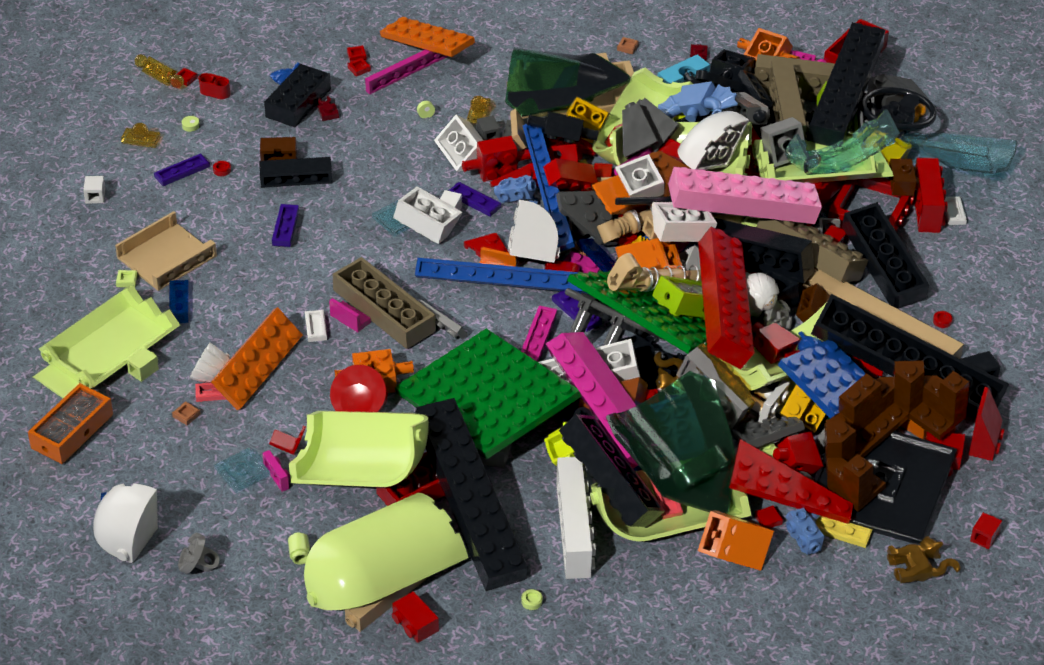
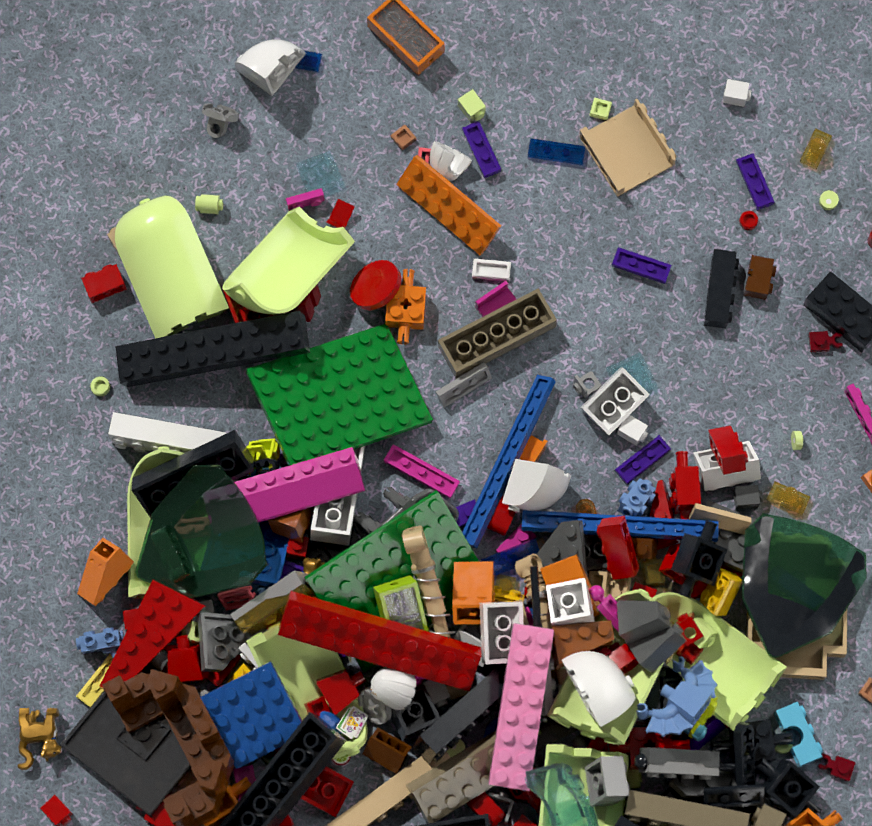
camera: 105 degrees right, 30 degrees up
(103, 341) = (509, 77): yellowish green panel -> none
(187, 351) = (481, 149): none -> dark purple plate
(417, 240) = (580, 387): none -> light grey bracket
(453, 135) = (728, 450): none -> red brick
(489, 241) = (564, 455): red wing -> none
(801, 331) = (352, 722): none -> white sticker

